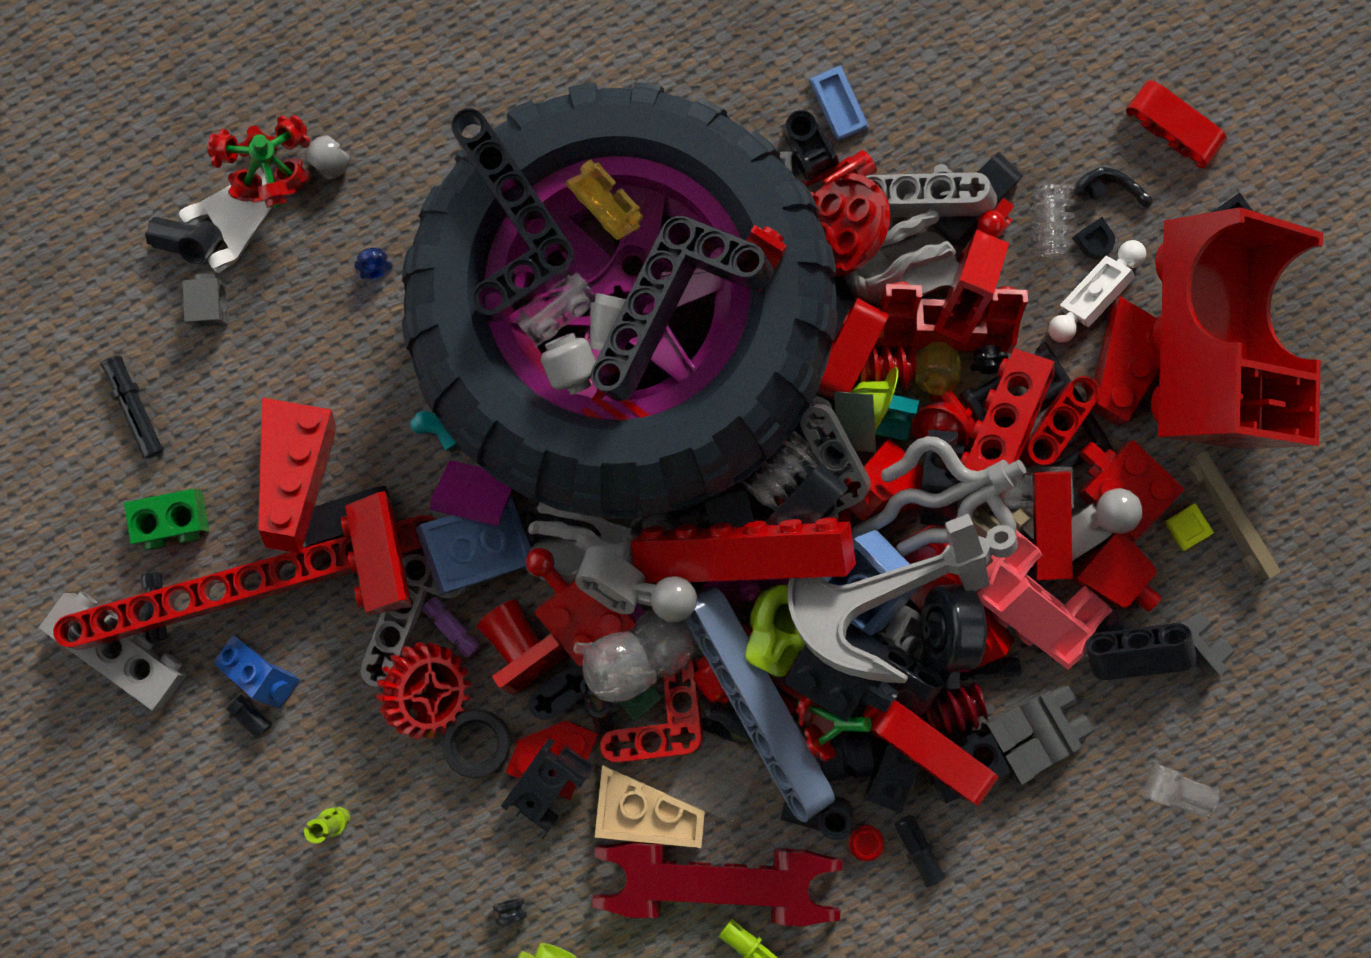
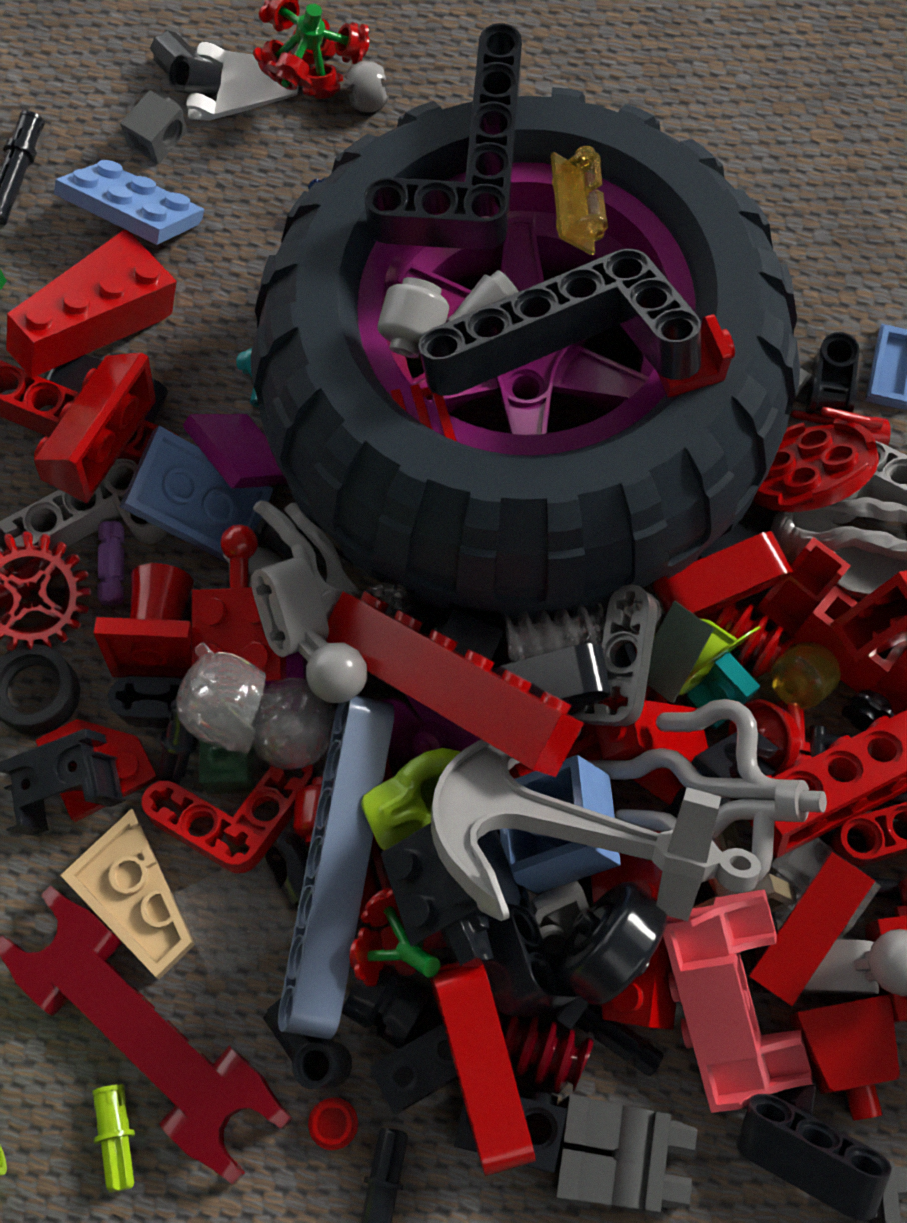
camera: 40 degrees right, 15 degrees down
(241, 373) = (129, 201): none -> medium blue plate
(543, 321) = (446, 265): clear hinge -> none

